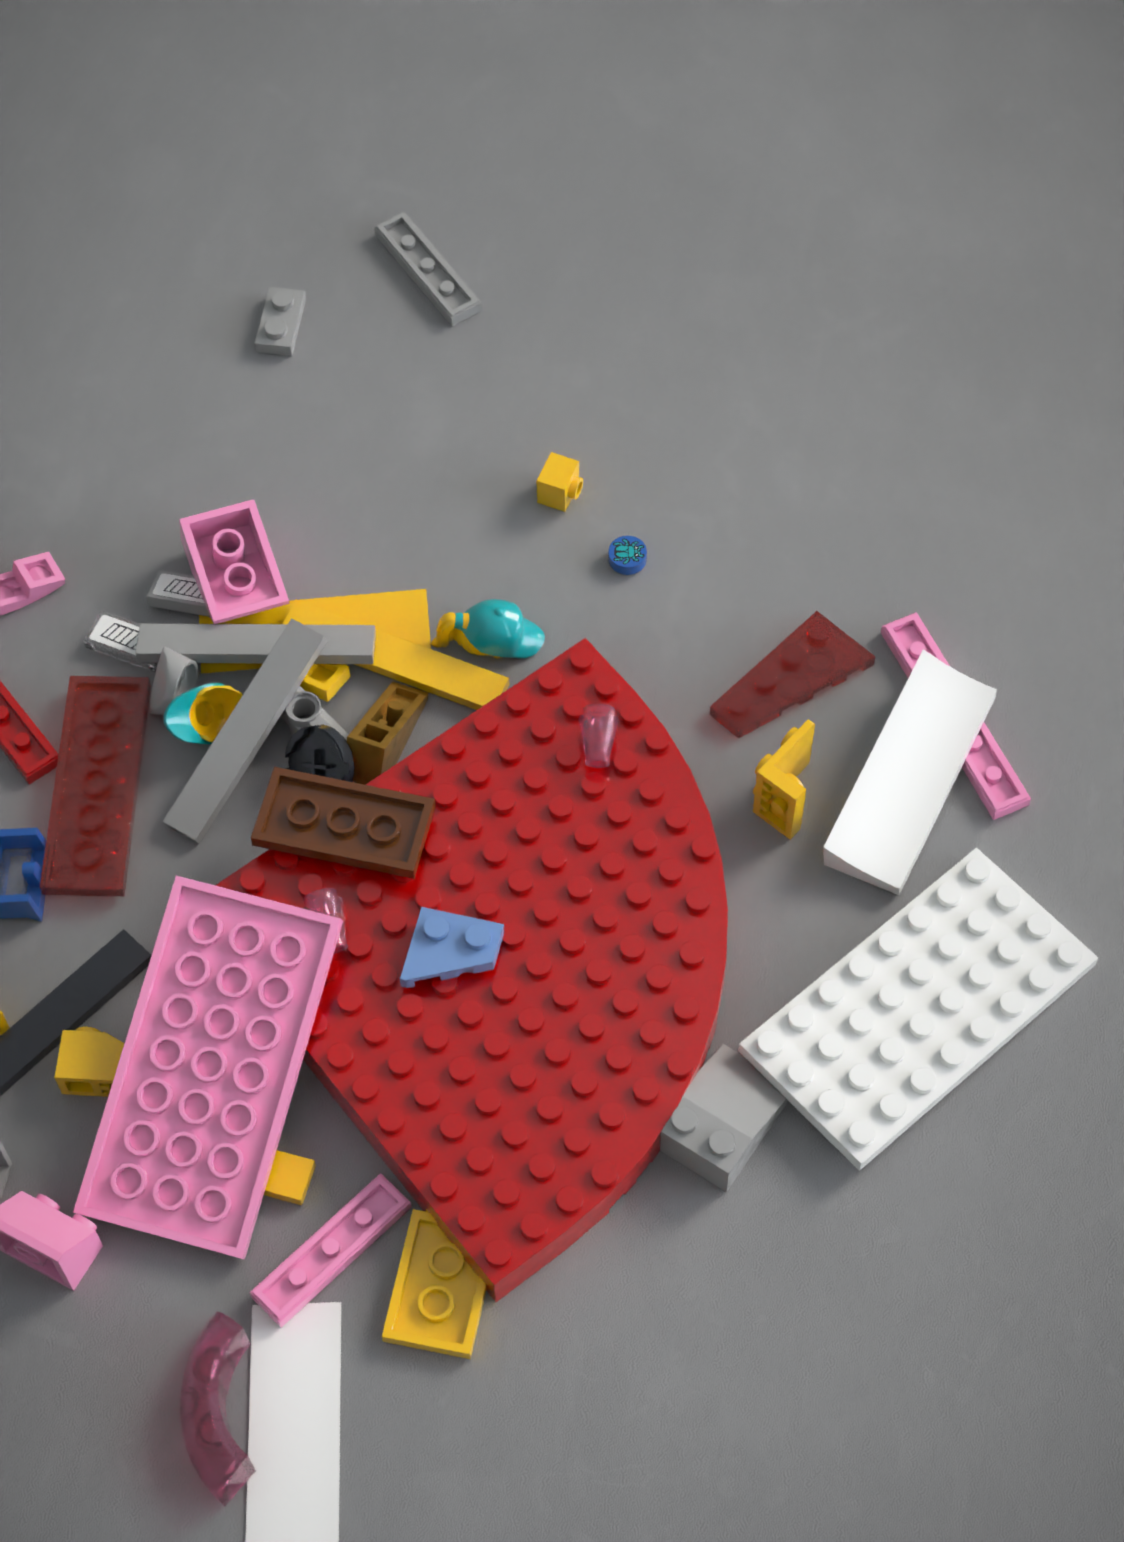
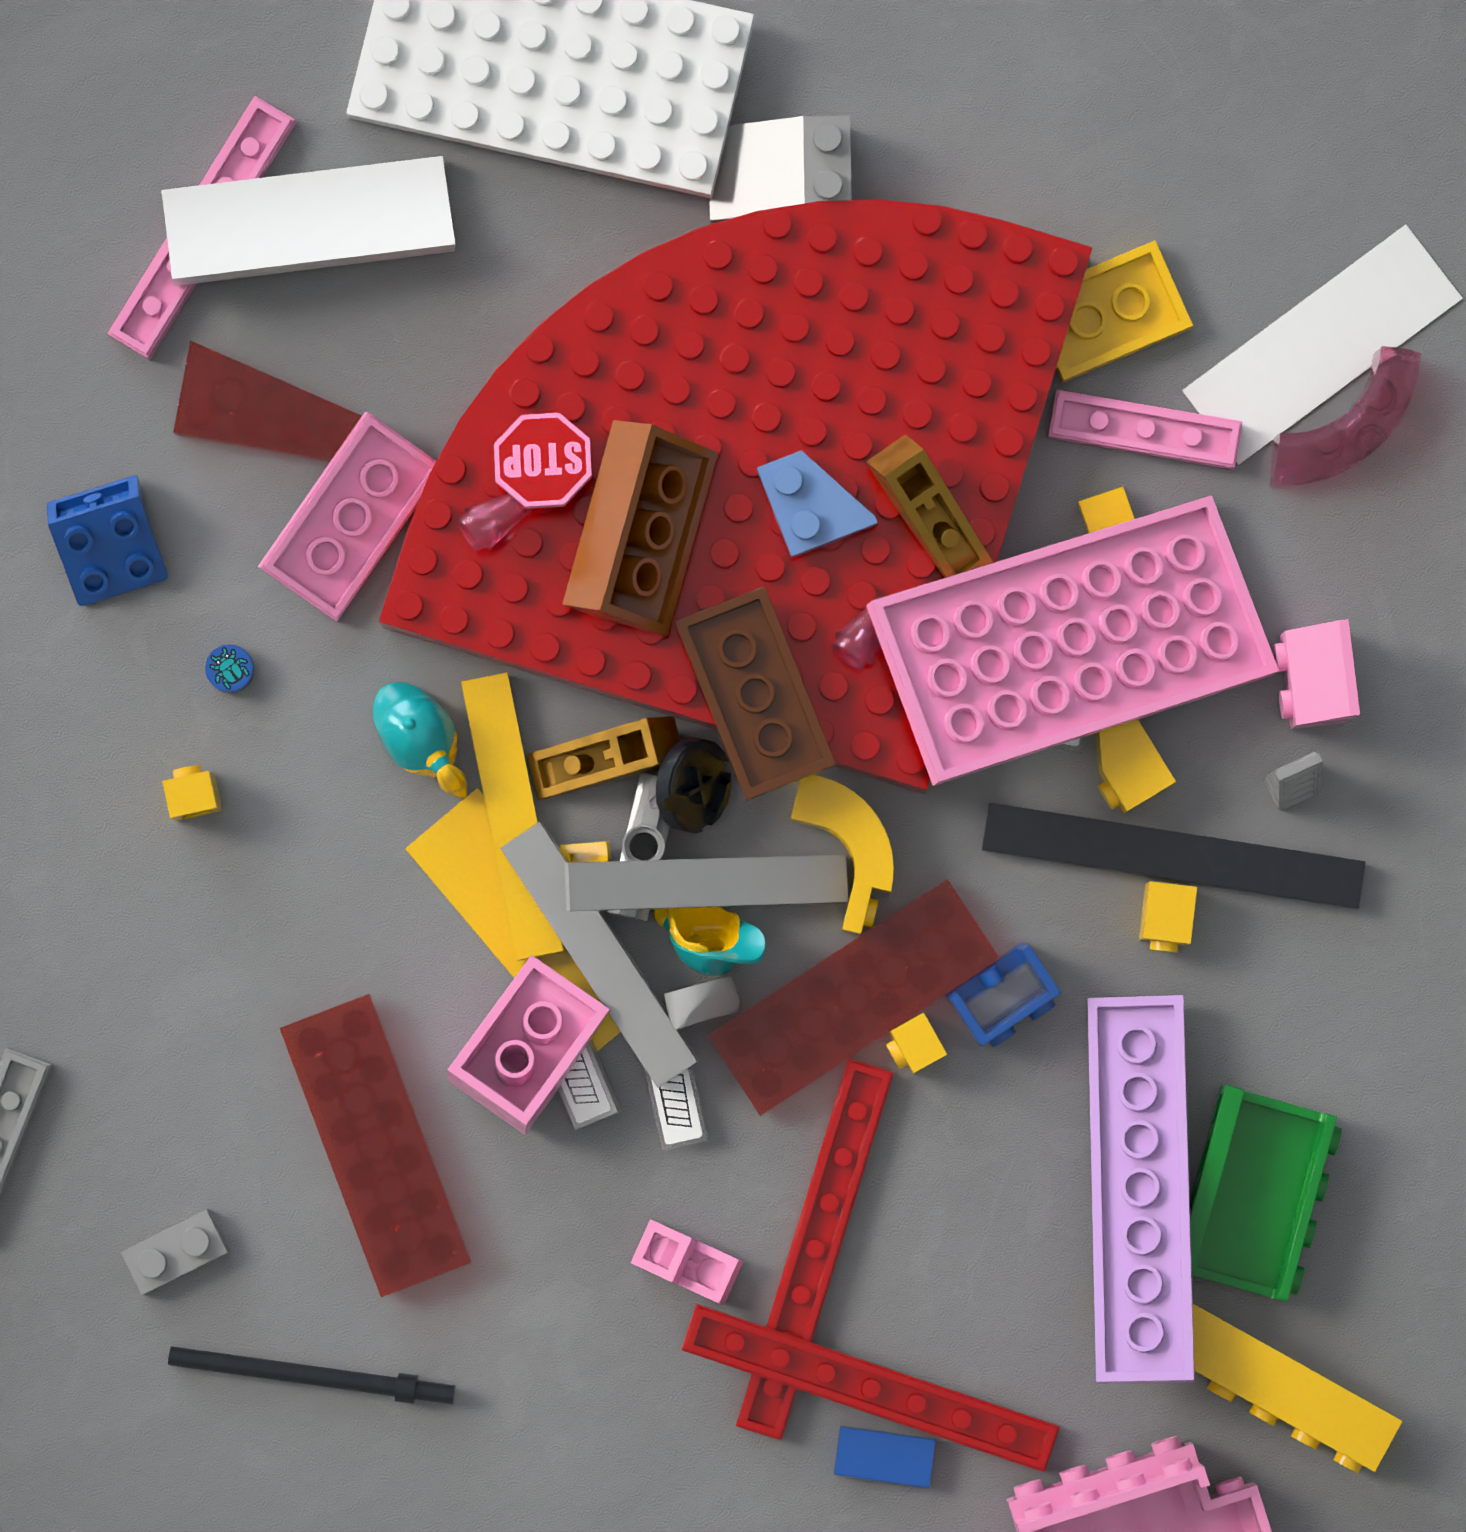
camera: 125 degrees left, 25 degrees up
(29, 800) = (915, 1044): none -> yellow plate
(90, 388) = (405, 1387): none -> black bar
(195, 855) = (851, 820): none -> yellow arch
(249, 456) = (375, 1145): none -> clear red plate
(383, 1017) = (928, 507): none -> pearl gold slope
(518, 820) = (640, 527): none -> dark orange slope
(615, 785) = (542, 460): none -> piece
(676, 676) = (349, 517): none -> bright pink tile
(774, 525) = (106, 541): none -> blue bracket
(778, 791) = (418, 341): yellow bracket -> none

